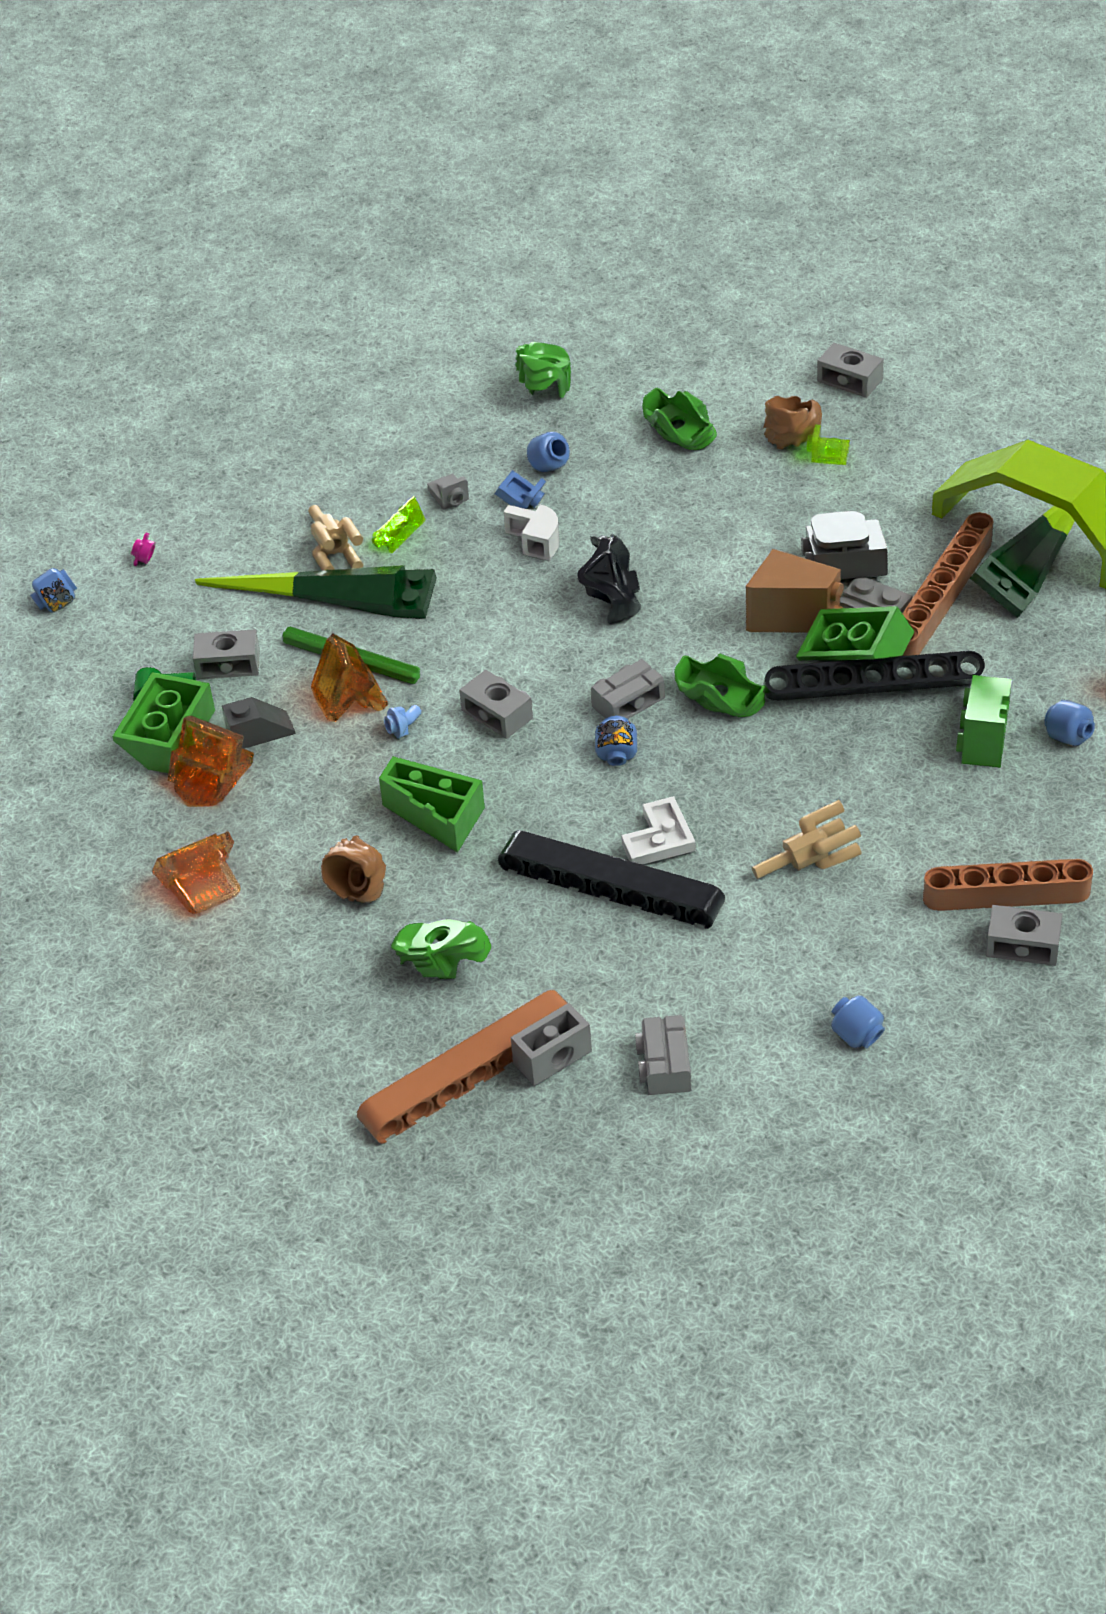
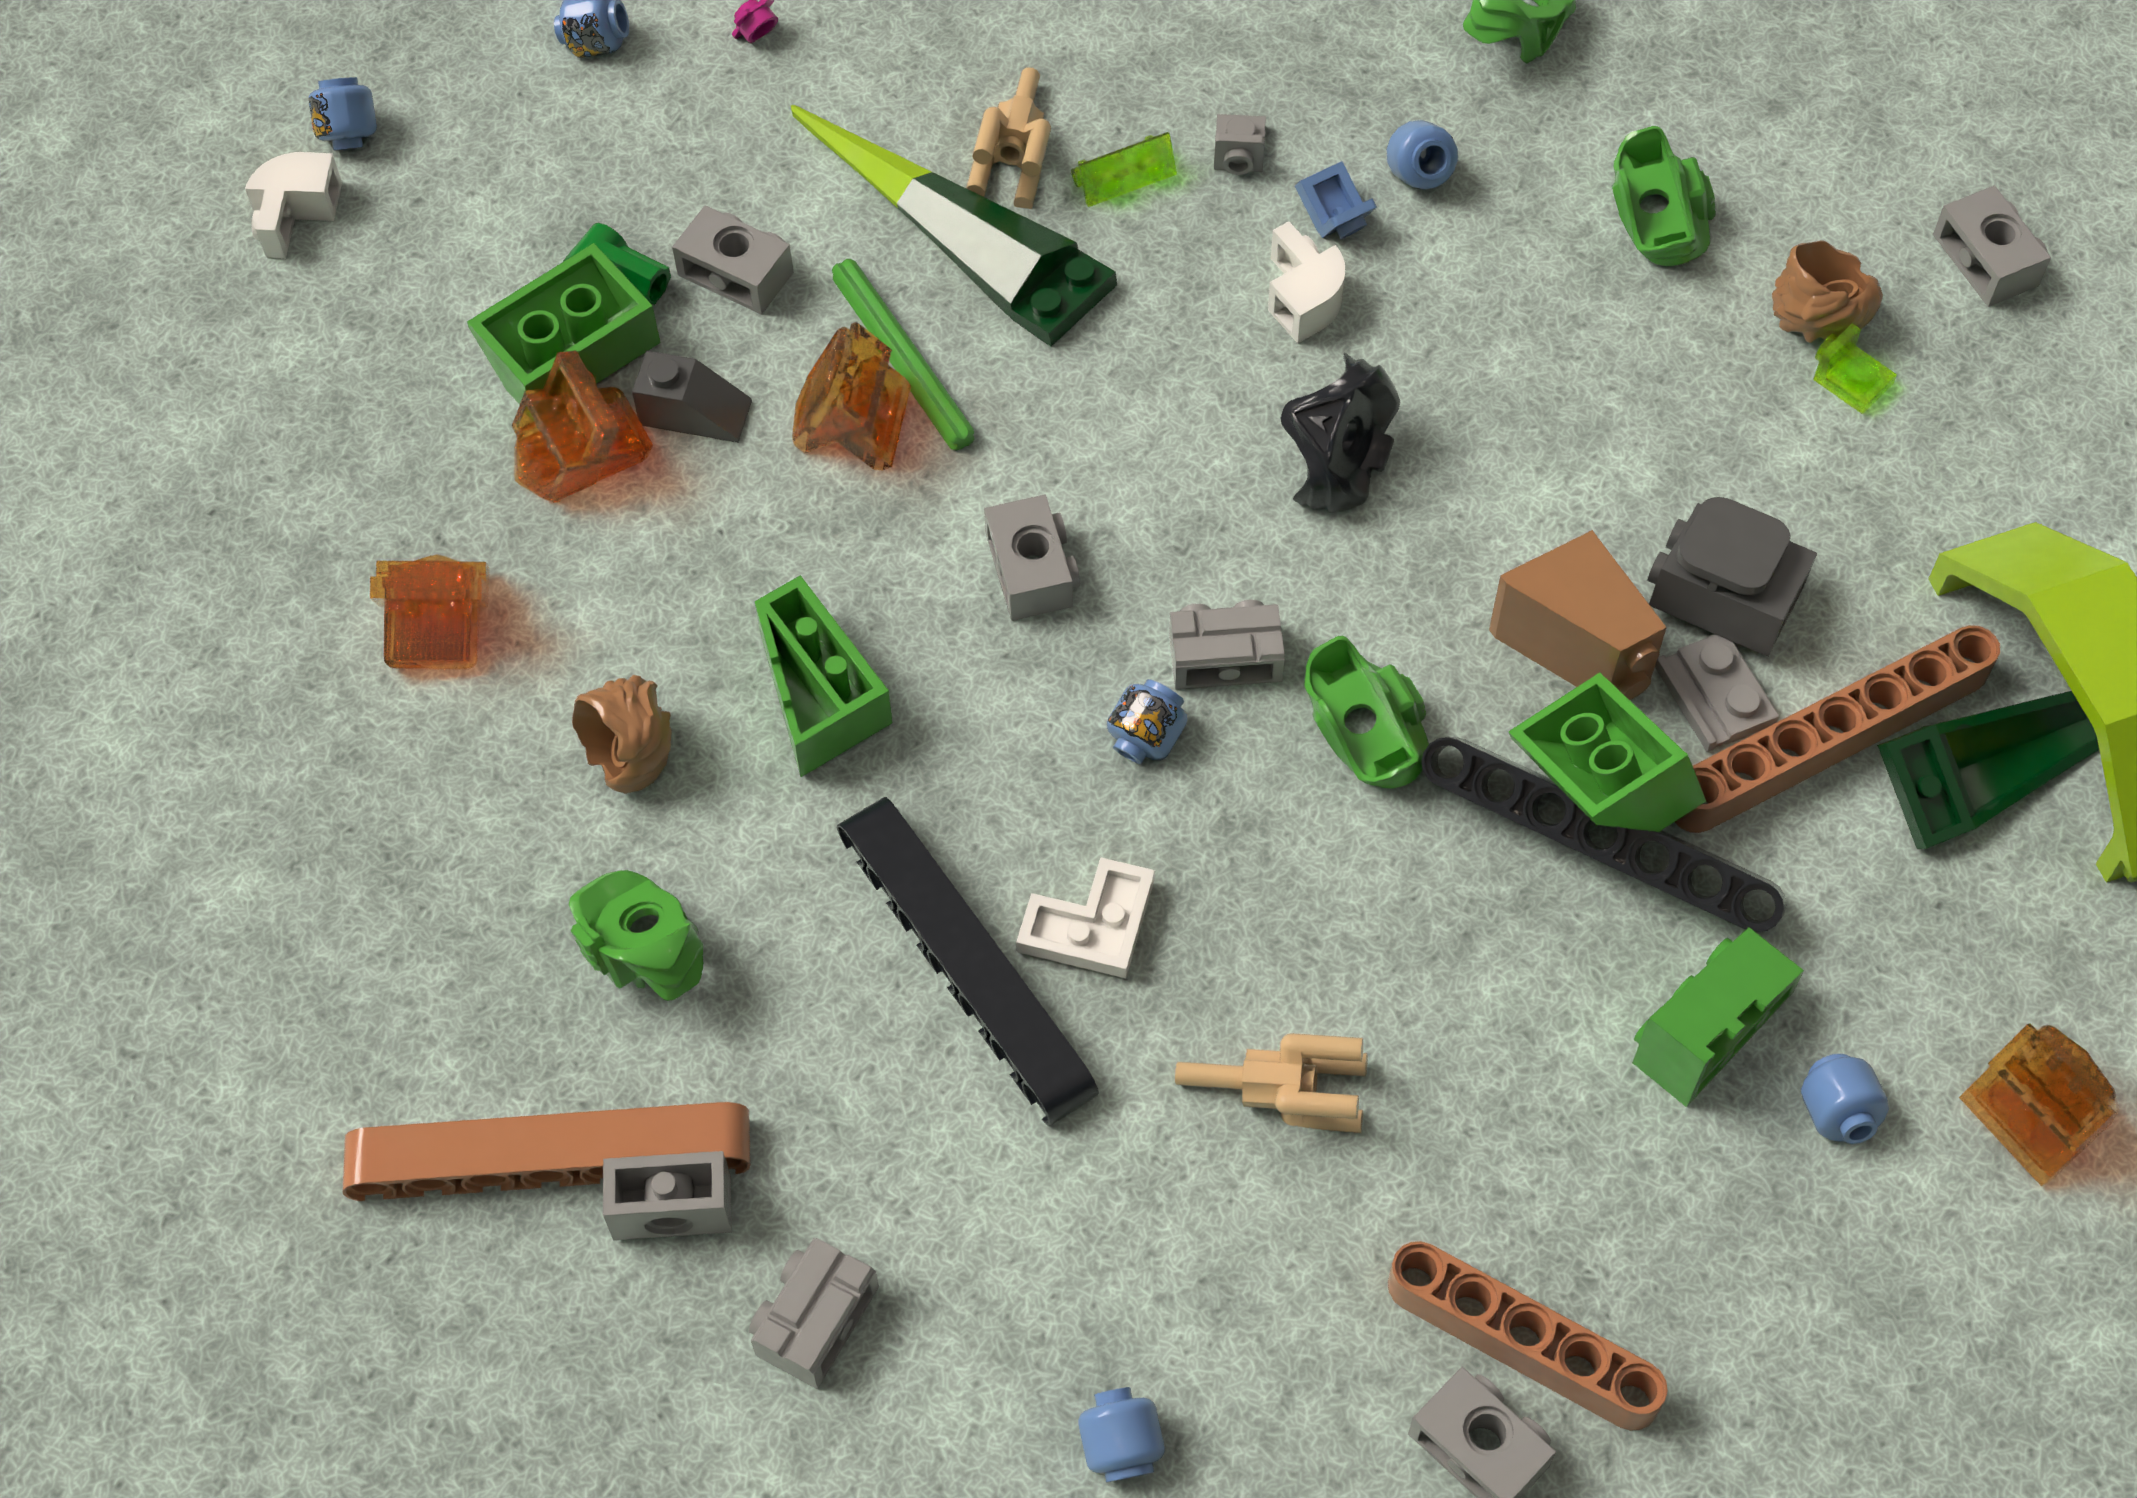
camera: 30 degrees right, 15 degrees up
(398, 720) = (876, 508): light blue plate -> none

